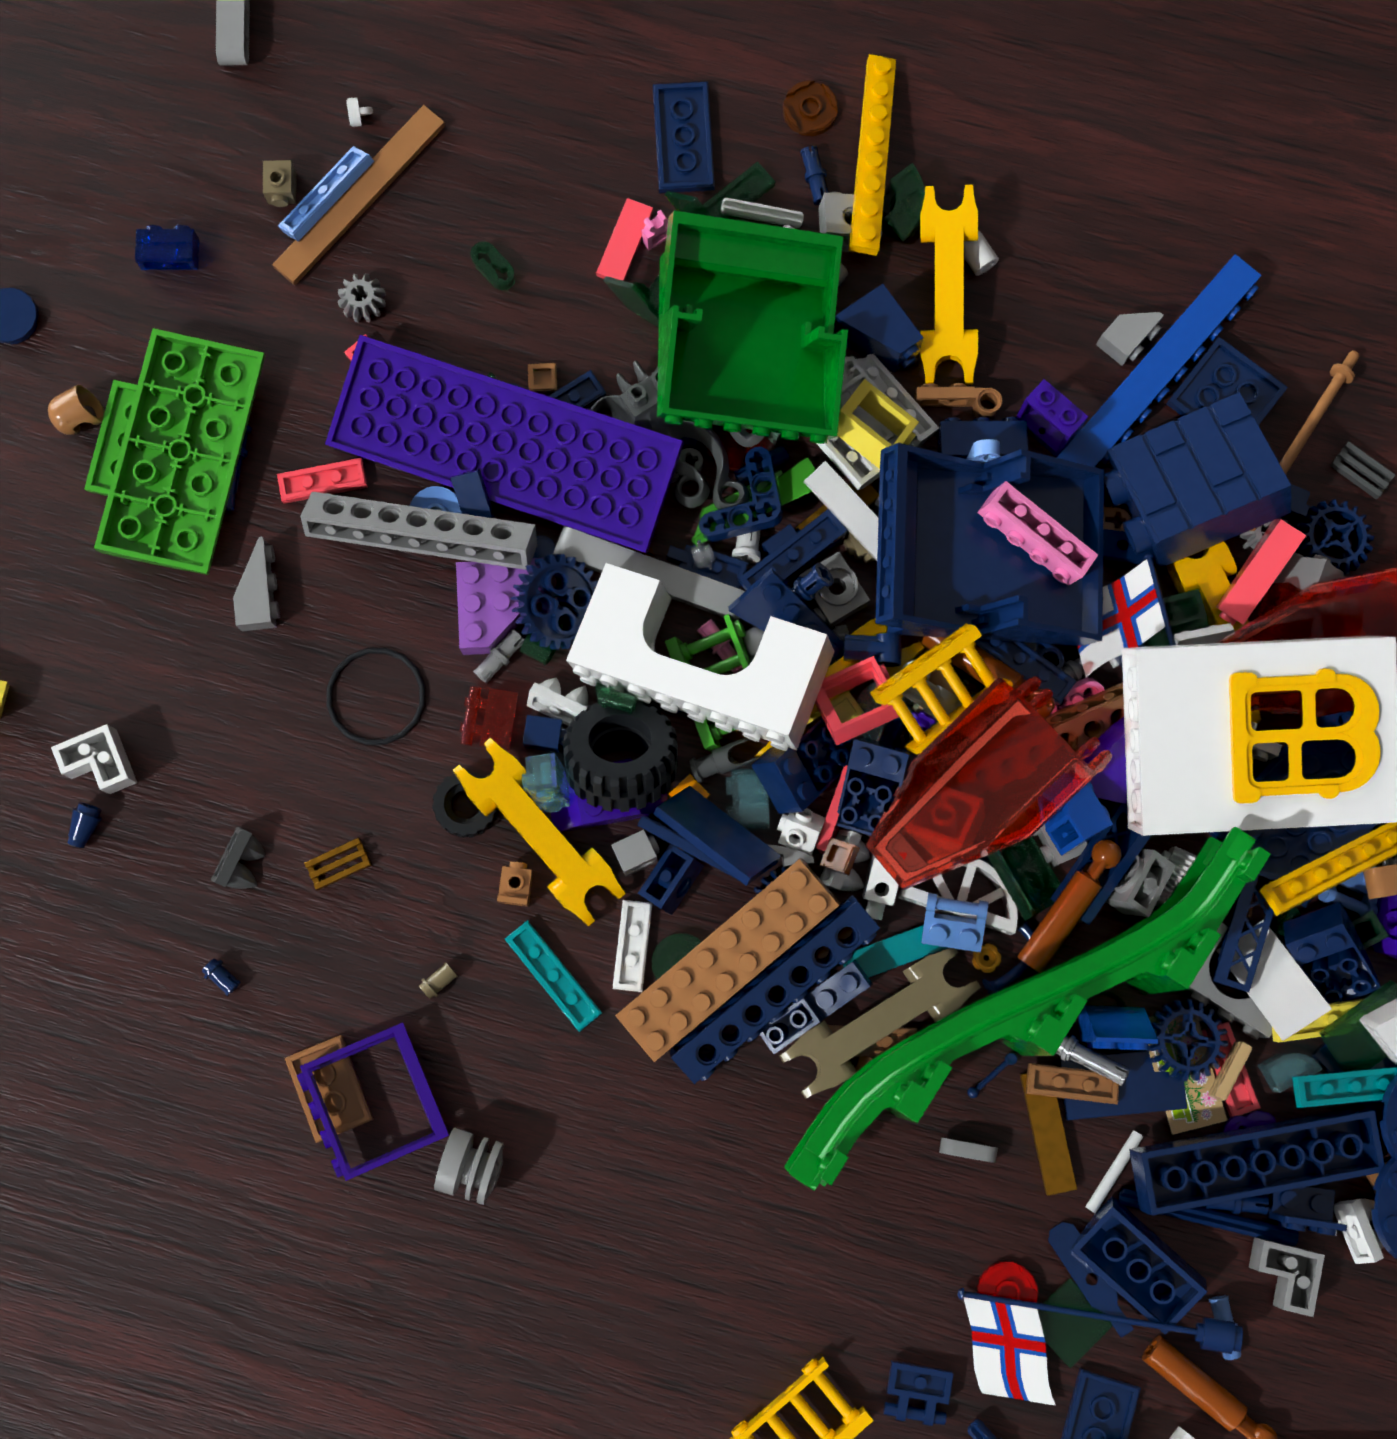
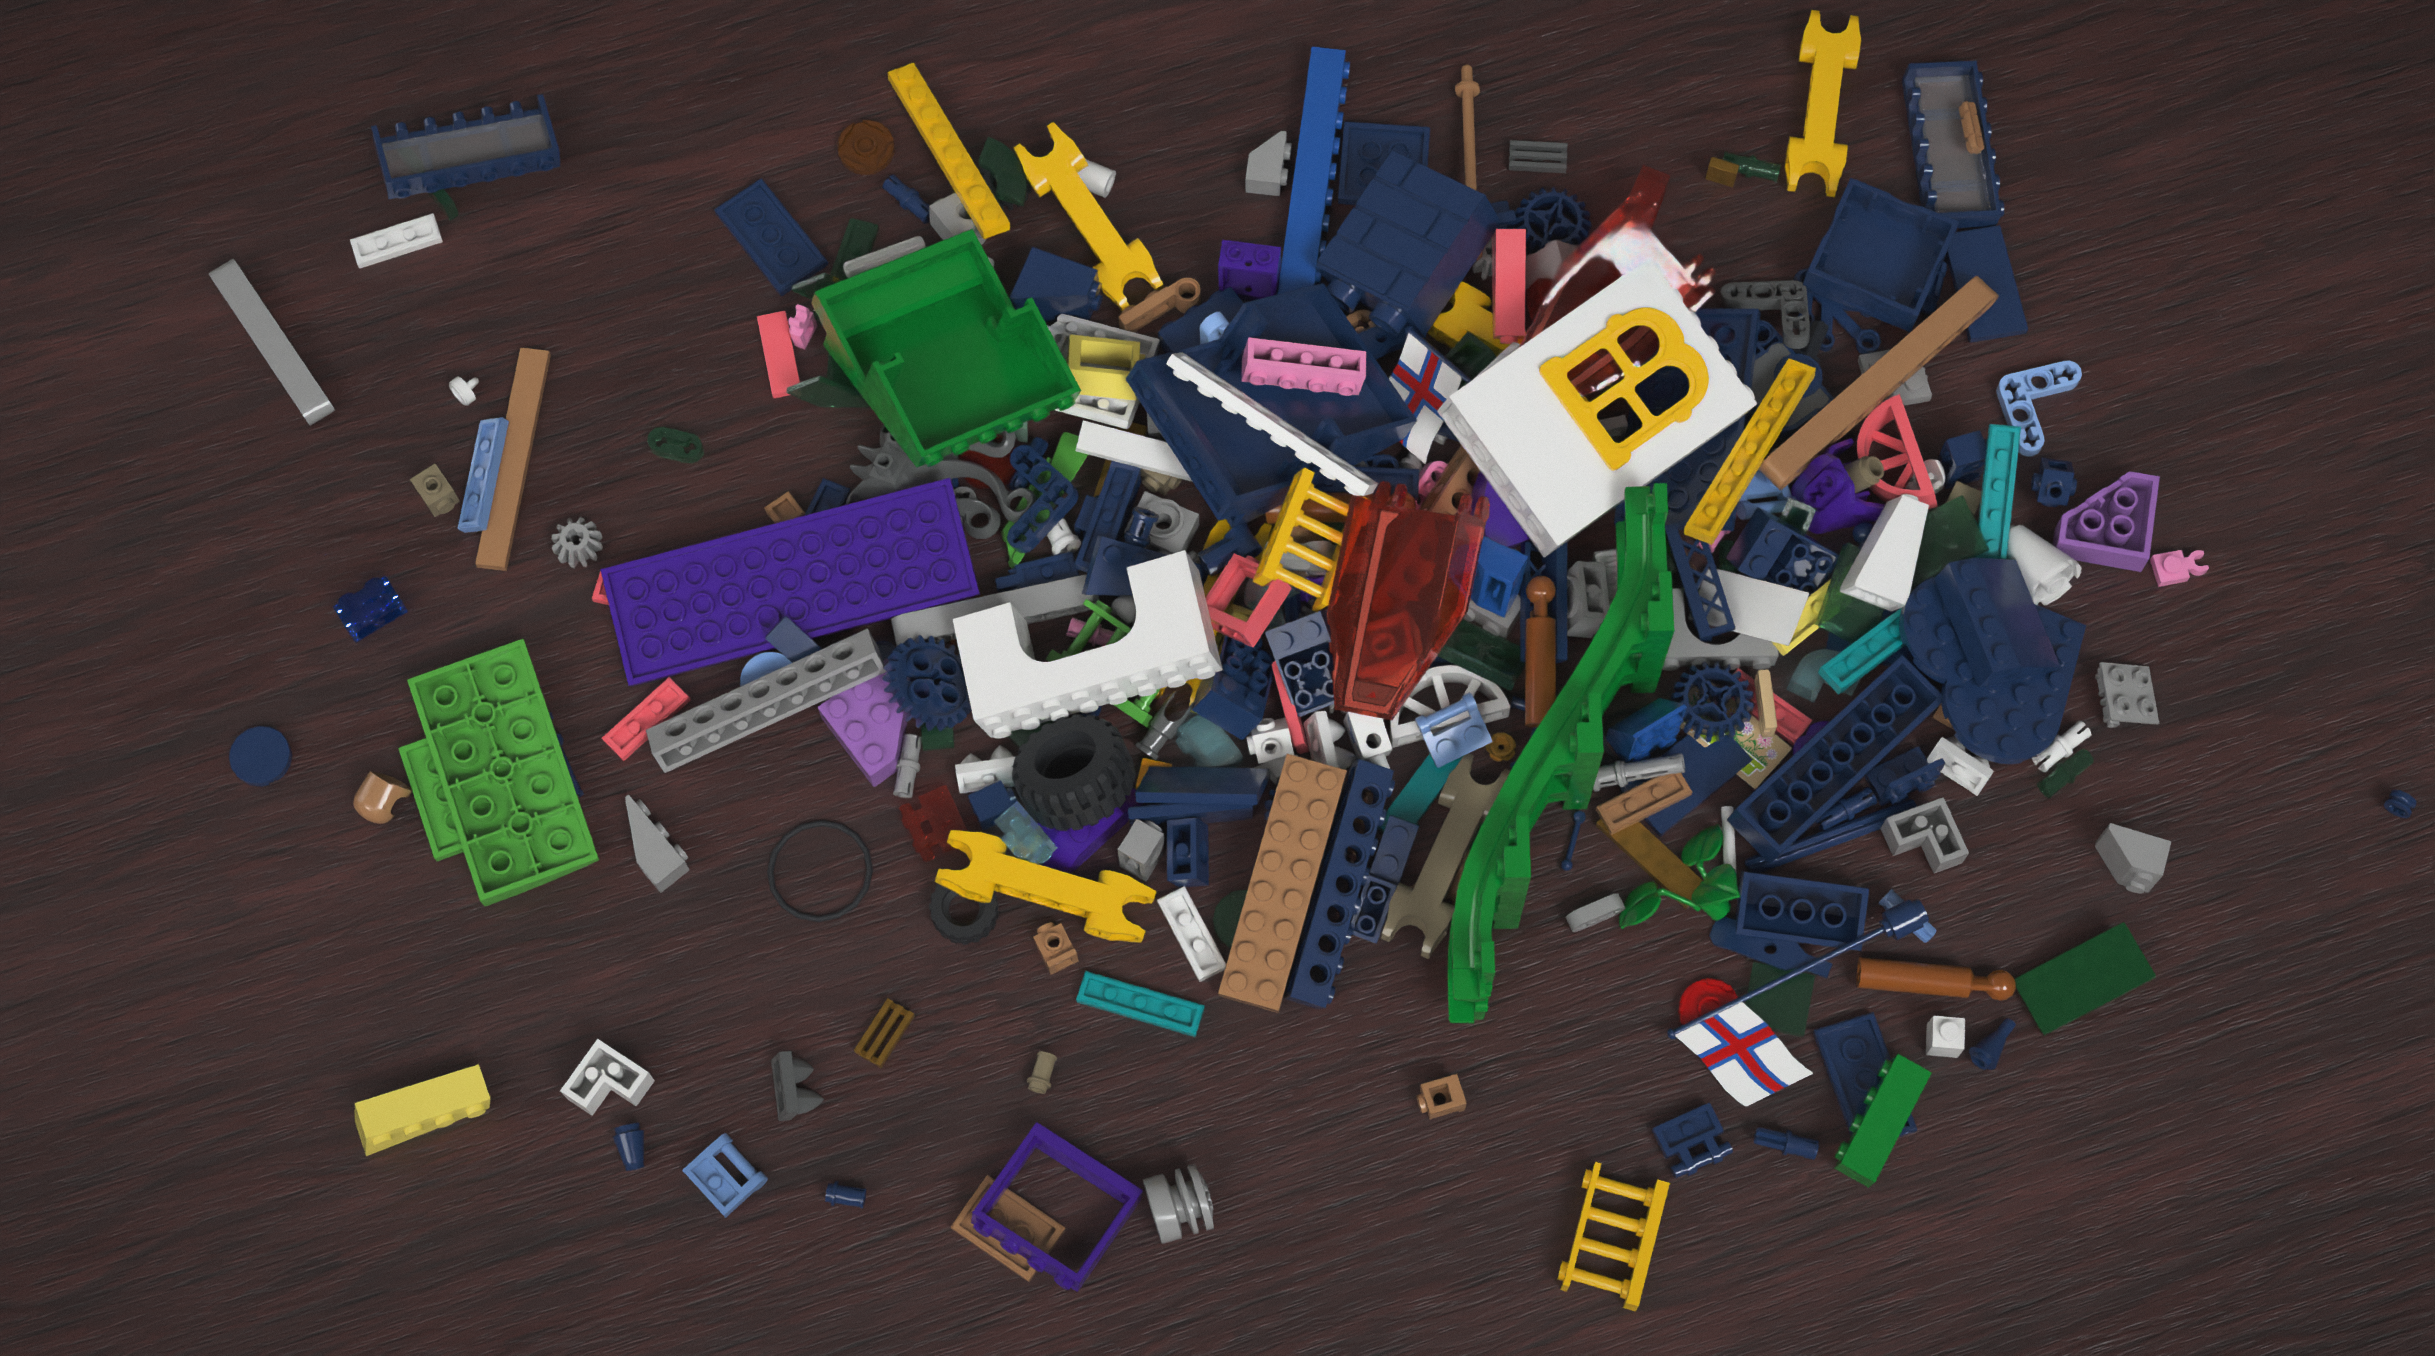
camera: 30 degrees left, 10 degrees down
(129, 897) = (717, 1182): none -> medium blue plate
(617, 699) = (1040, 726): clear green pin -> none
(703, 555) = (1030, 566): clear plate -> none
(747, 1228) = (1449, 1088): none -> medium nougat brick
(839, 856) = (1319, 738): dark orange tile -> none
(977, 579) = (1281, 431): none -> white plate
(1072, 1209) = (1711, 894): none -> green plant

